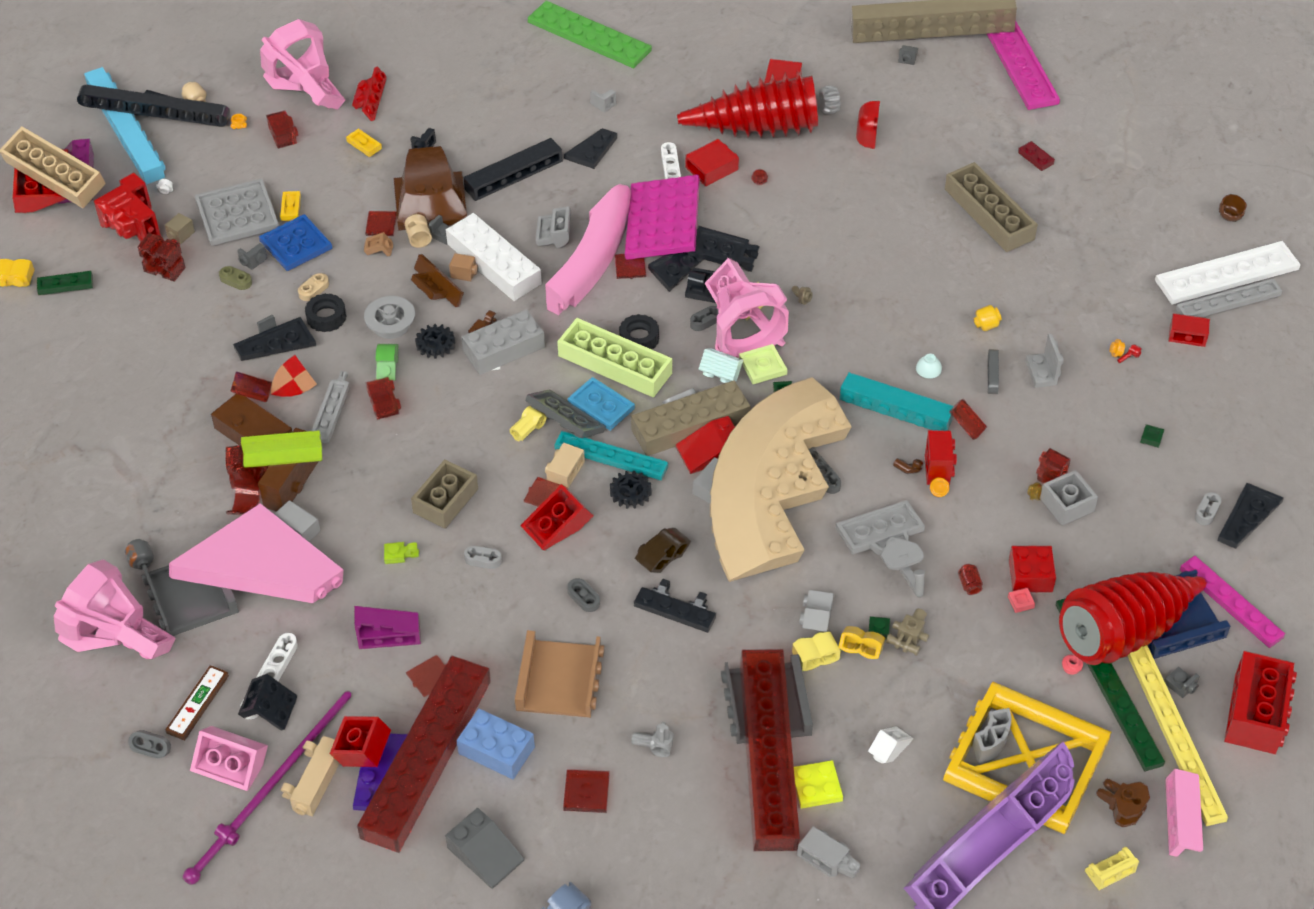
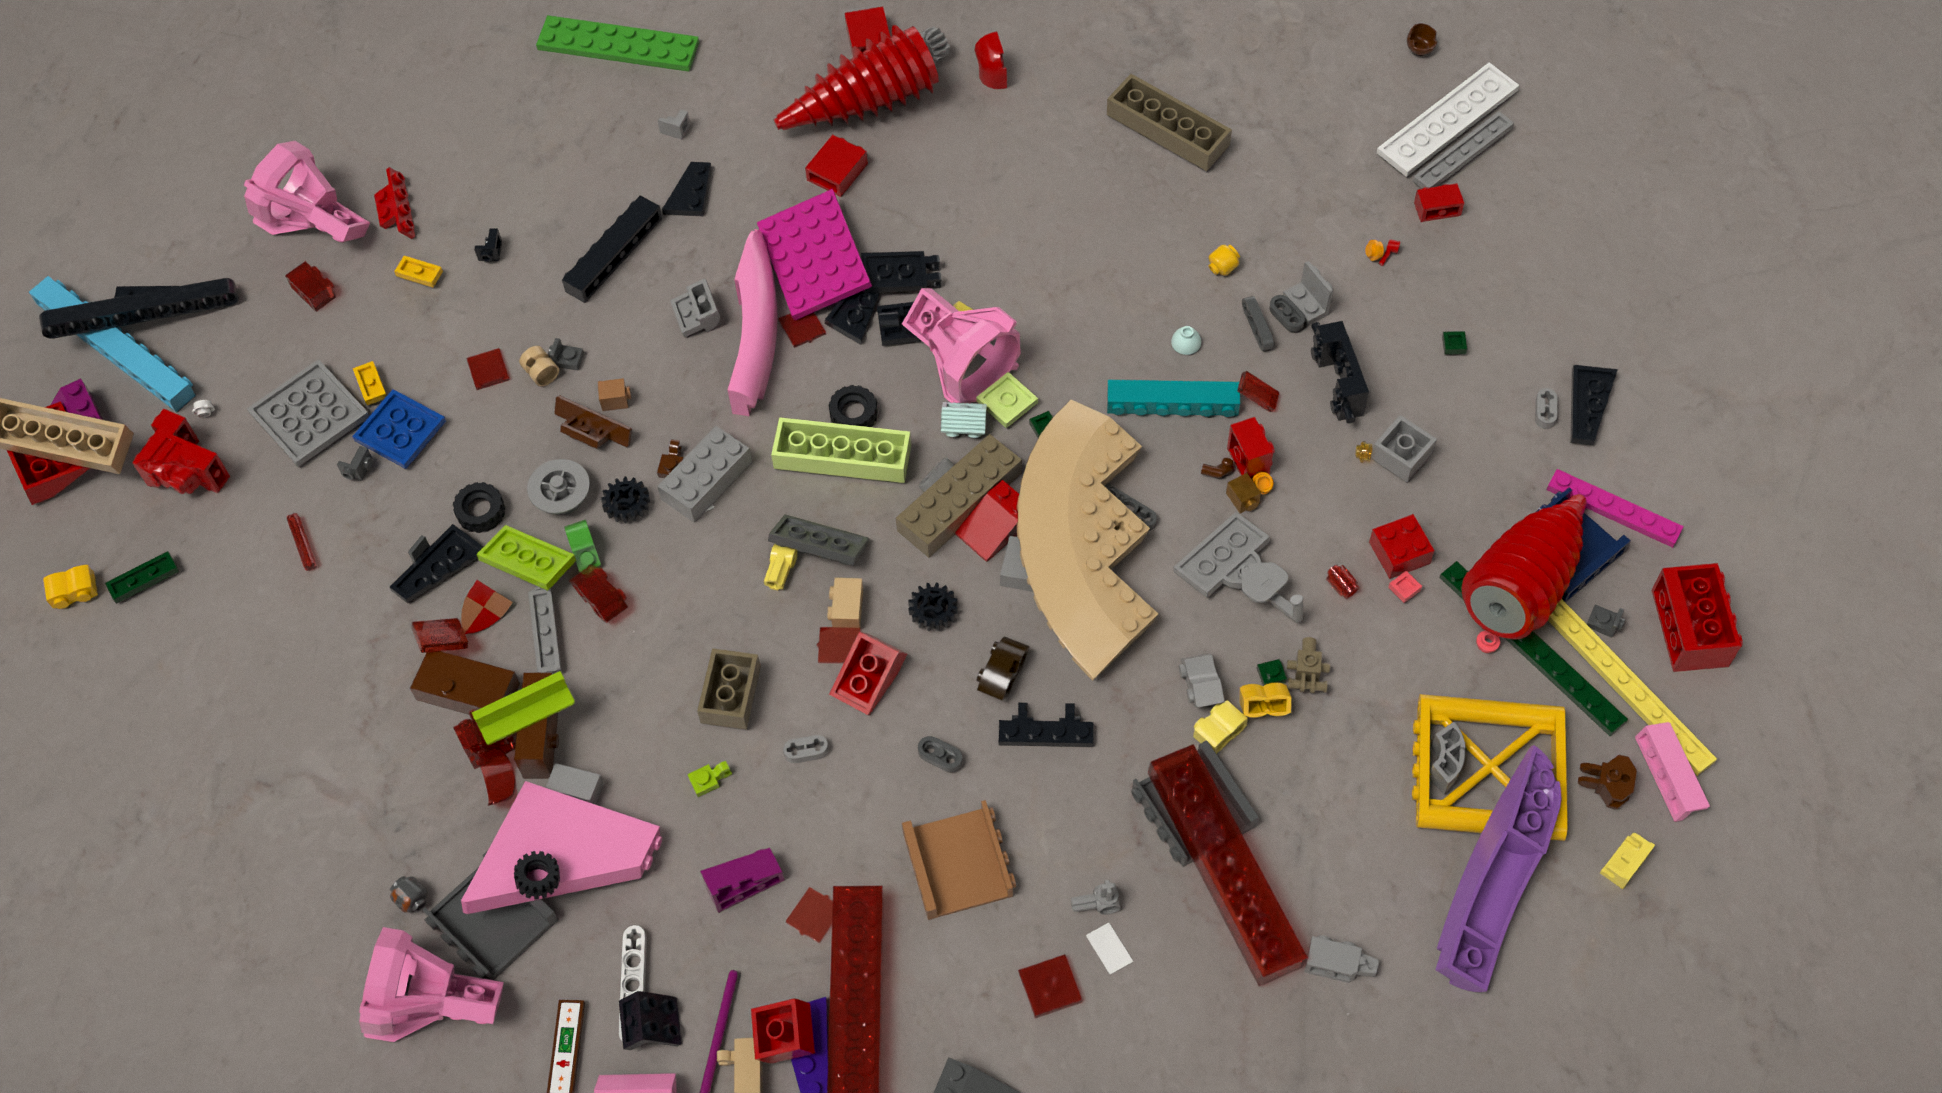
camera: 20 degrees left, 10 degrees up
(161, 257) = (248, 504): clear red brick -> none
(179, 228) = (249, 458): dark tan brick -> none
(187, 297) = (301, 542): none -> clear red axle
(193, 91) = (179, 273): tan head -> none
(232, 556) = (531, 863): none -> black tyre
(235, 278) = (346, 499): olive plate -> none
(238, 121) = (251, 292): light orange plate -> none
(313, 286) = (449, 477): tan plate -> none
(341, 355) = (526, 557): none -> lime plate
(378, 243) = (498, 398): medium nougat bracket -> none
(429, 188) = (525, 306): reddish brown wedge -> none
(494, 256) = (644, 368): white brick -> none
(495, 743) = (928, 970): medium blue brick -> none
(602, 403) = (851, 511): dark azure plate -> none
(615, 456) = (895, 571): teal plate -> none
(647, 781) = (1109, 948): none -> white sticker
(674, 167) = (794, 185): white beam -> none
(703, 319) = (920, 366): dark grey beam -> none
(759, 177) = (897, 166): clear red plate -> none
(804, 294) = (1013, 298): dark tan plate -> none
(817, 784) = (1291, 881): neon yellow plate -> none
(889, 744) = (1345, 807): white slope -> none
(919, 489) = (1243, 493): none -> pearl gold brick
(1023, 374) = (1288, 314): none -> dark grey plate
(1036, 156) = (1187, 40): dark red plate -> none
(1044, 410) = (1334, 348): none -> black brick
(1052, 465) = (1373, 420): clear red brick -> none

